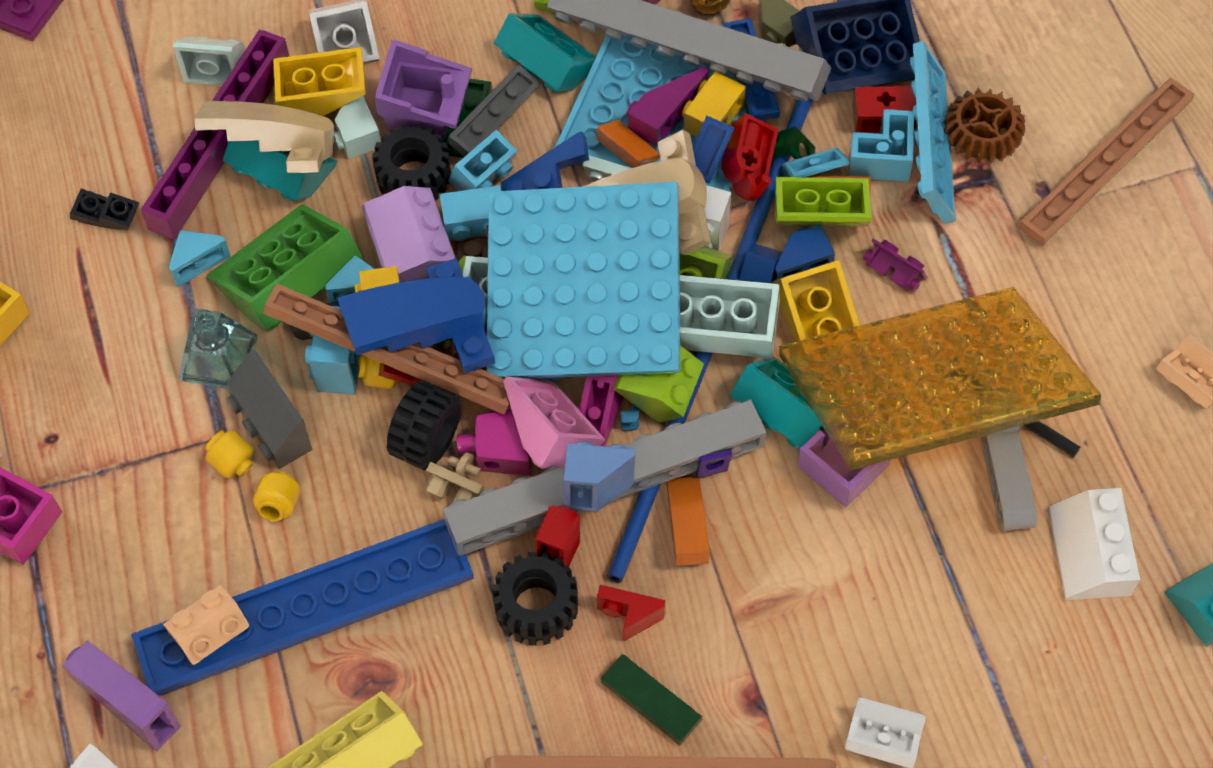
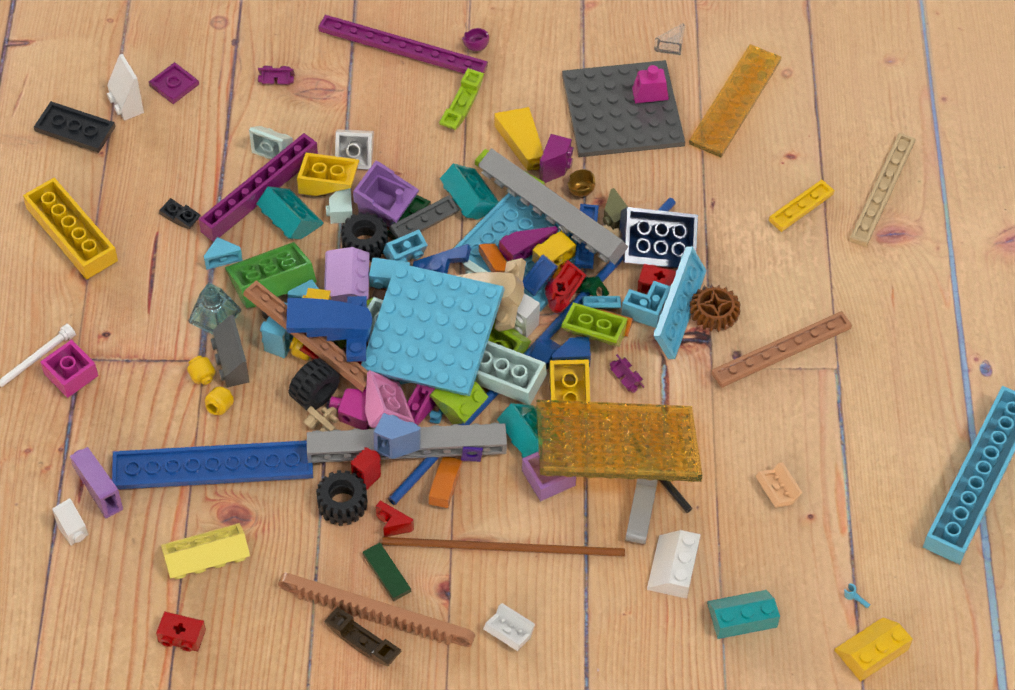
camera: 15 degrees right, 5 degrees down
(206, 624) = (155, 457): light nougat bracket -> none
(275, 127) = (290, 193): tan slope -> none
(815, 600) = (503, 546): none -> dark orange piece

